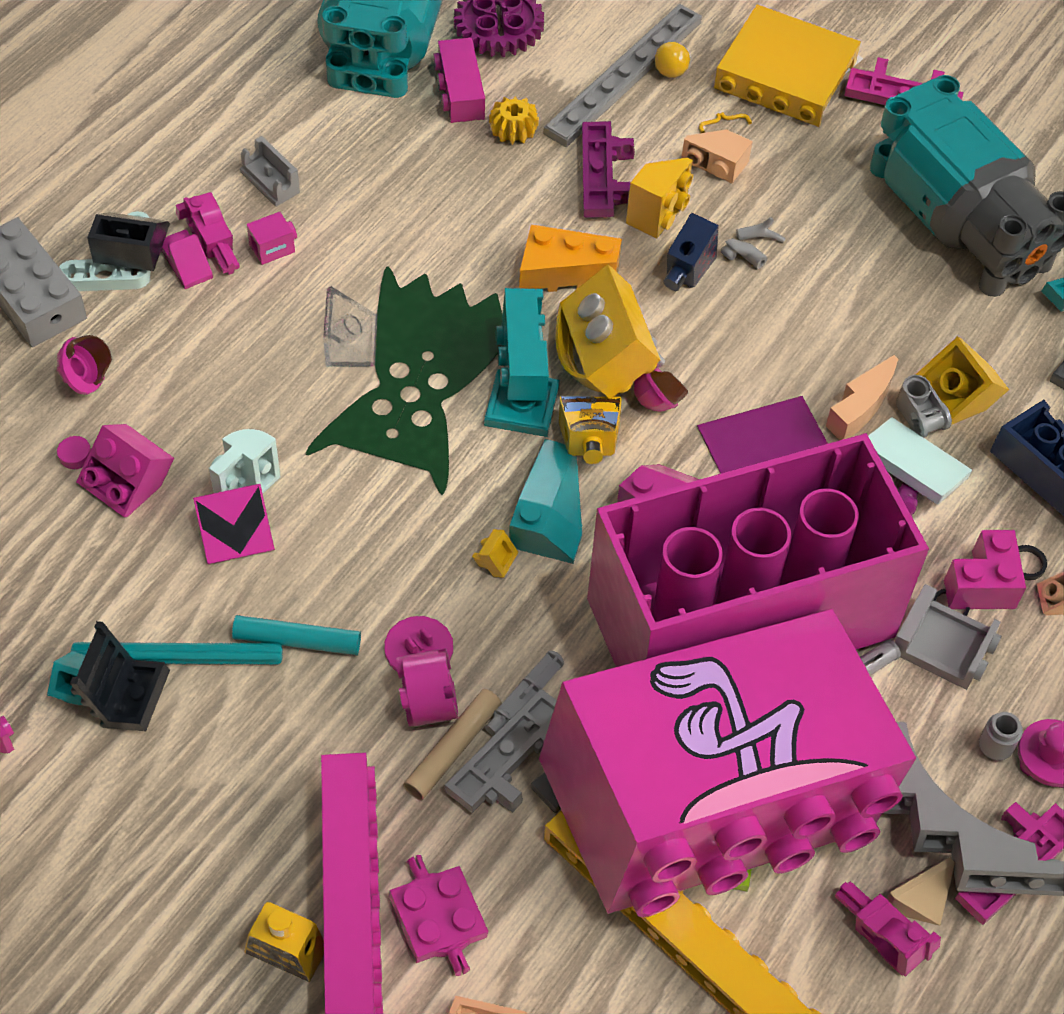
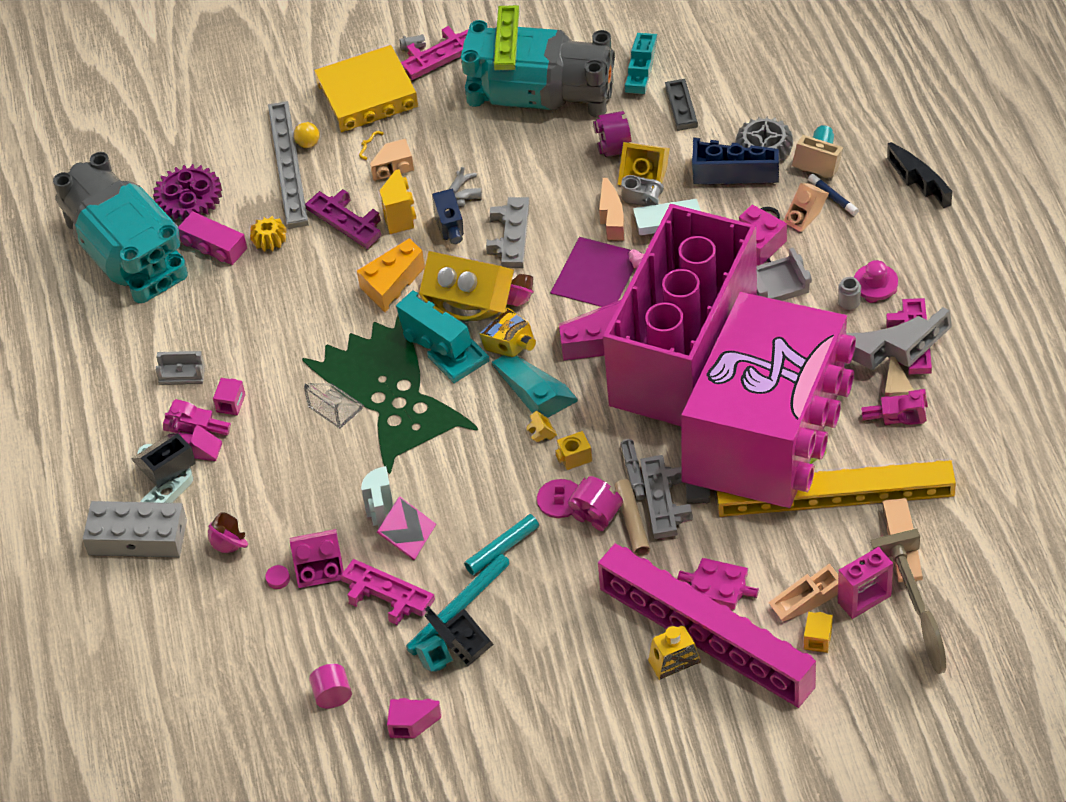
camera: 40 degrees left, 5 degrees down
(142, 590) = (401, 594): none -> dark pink hinge
(491, 623) = (573, 450): none -> yellow brick
(759, 319) = (513, 244): none -> light grey hinge
(896, 62) = (417, 40): none -> light grey pin
(958, 118) = (506, 37): none -> lime tile
(965, 317) = (612, 133): none -> magenta brick

